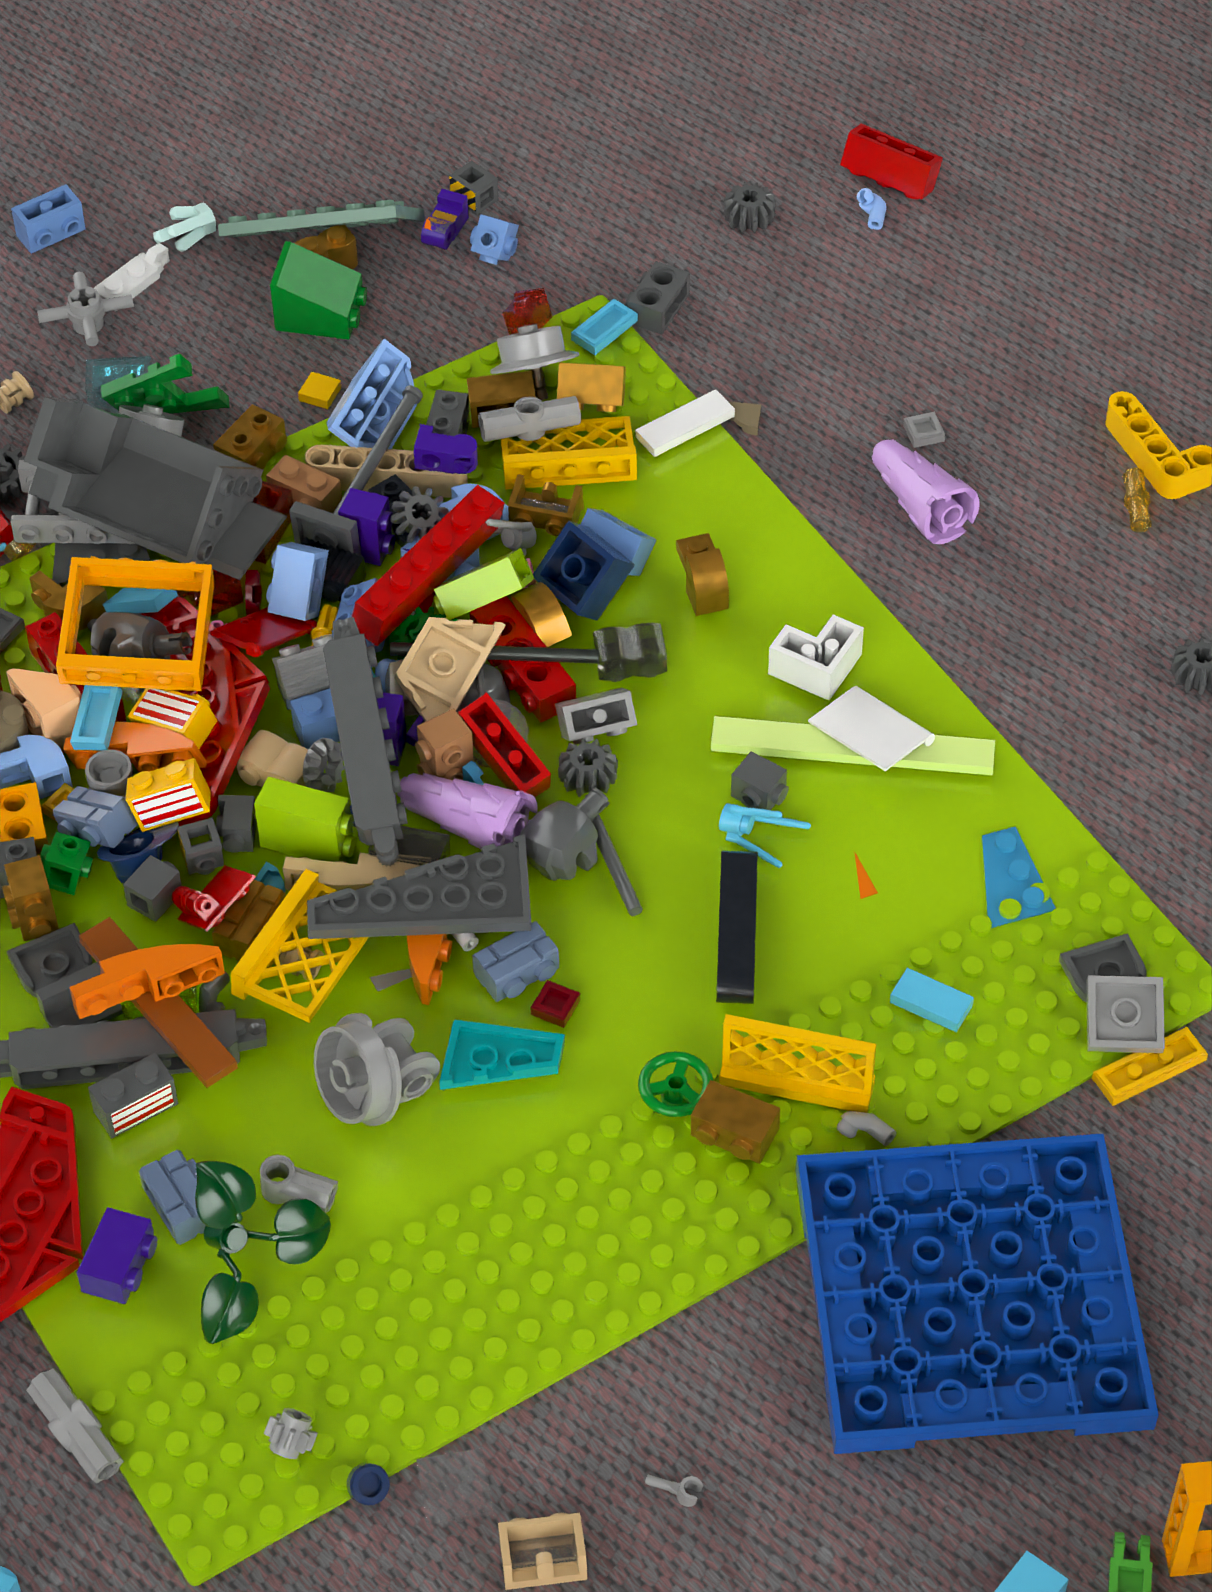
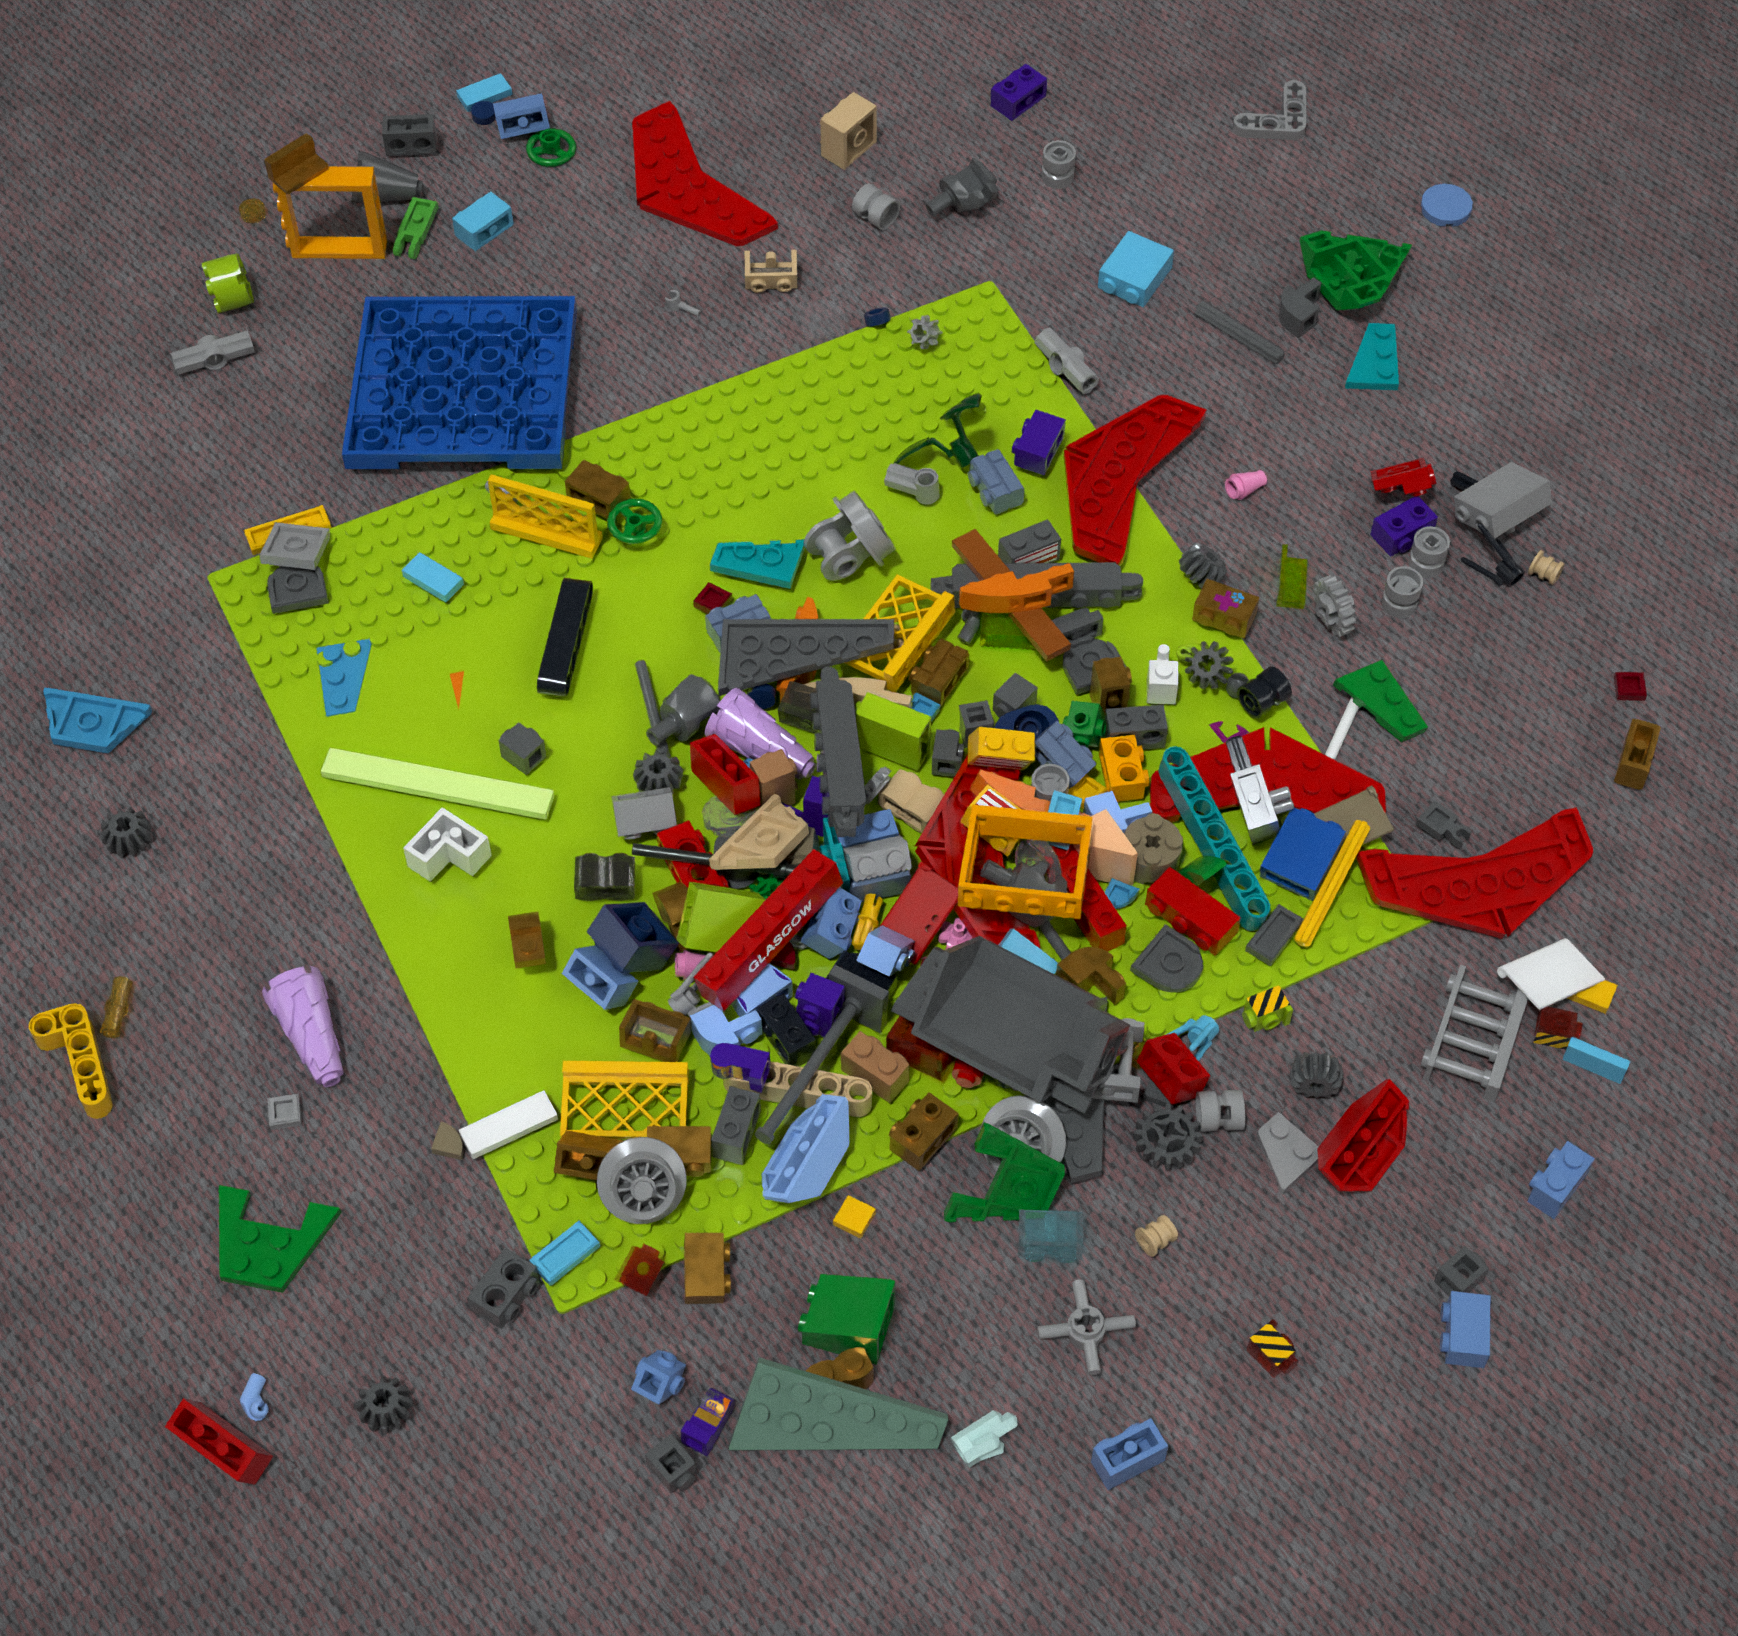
camera: 175 degrees left, 5 degrees up
(135, 274) = (1042, 1383): white hinge -> none
(208, 907) = (965, 678): red hinge -> none
(417, 503) = (771, 985): dark grey gear -> none
(462, 322) = (705, 1268): none -> pearl gold brick
(529, 418) = (676, 1112): light grey piece -> none
(740, 820) = (545, 721): medium azure plant -> none
(871, 728) = (418, 784): white piece -> none
(906, 315) = (265, 1253): none -> green wing

